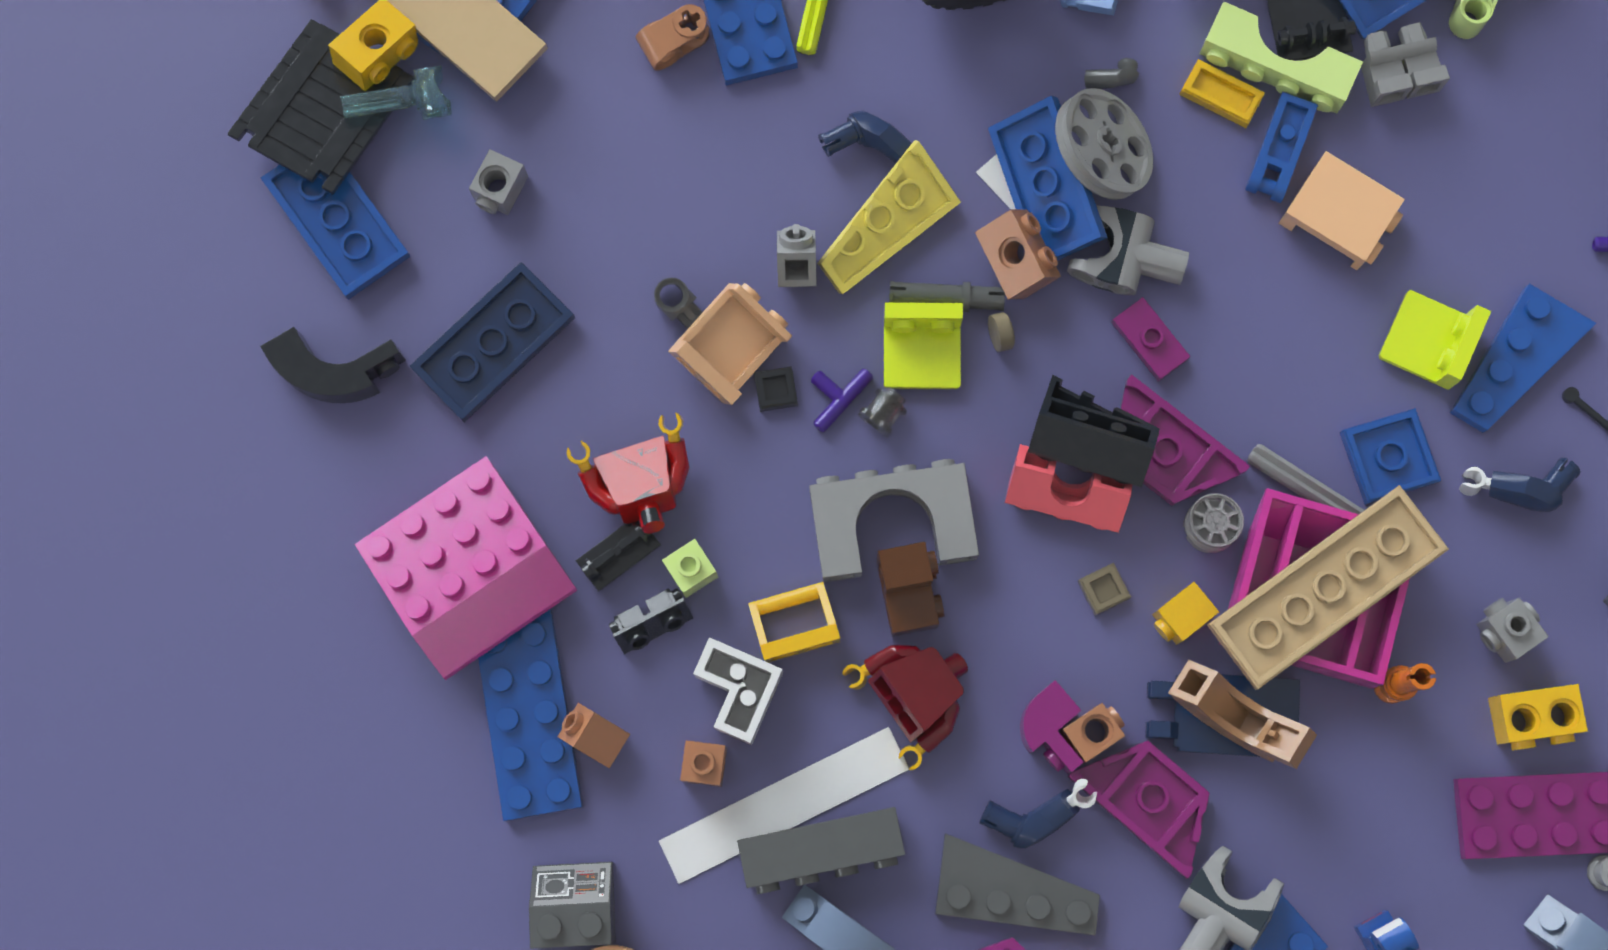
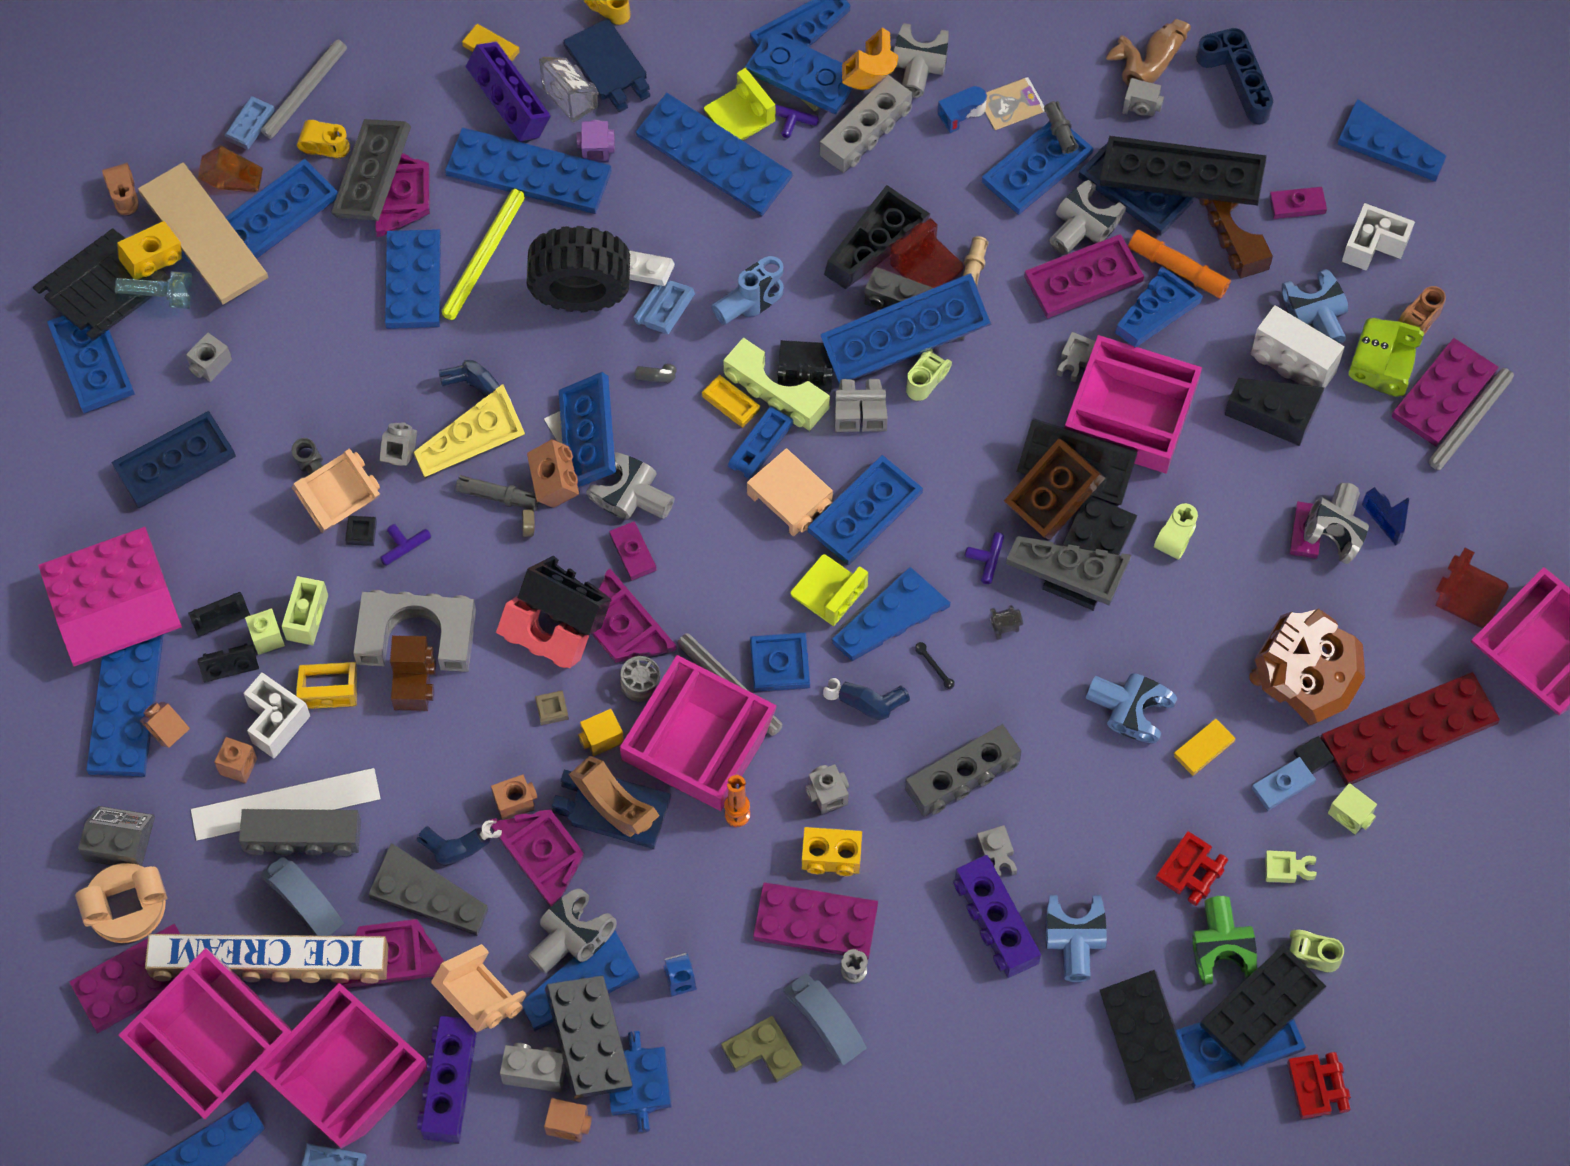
camera: 10 degrees right, 15 degrees down
(326, 381) = (55, 461): black arch -> none
(638, 479) = (246, 565): torso -> none
(670, 39) = (354, 287): nougat piece -> none
(737, 528) = (305, 610): none -> yellowish green brick
(883, 410) = (430, 557): clear smoke brick -> none
(916, 691) = (397, 743): dark red torso -> none
(922, 345) = (470, 519): neon yellow bracket -> none
(1041, 723) = (478, 784): magenta brick -> none
(1104, 144) = (634, 419): light grey wedge -> none
(1327, 587) = (698, 726): tan tile -> none
(1447, 214) = (865, 510): none -> blue plate

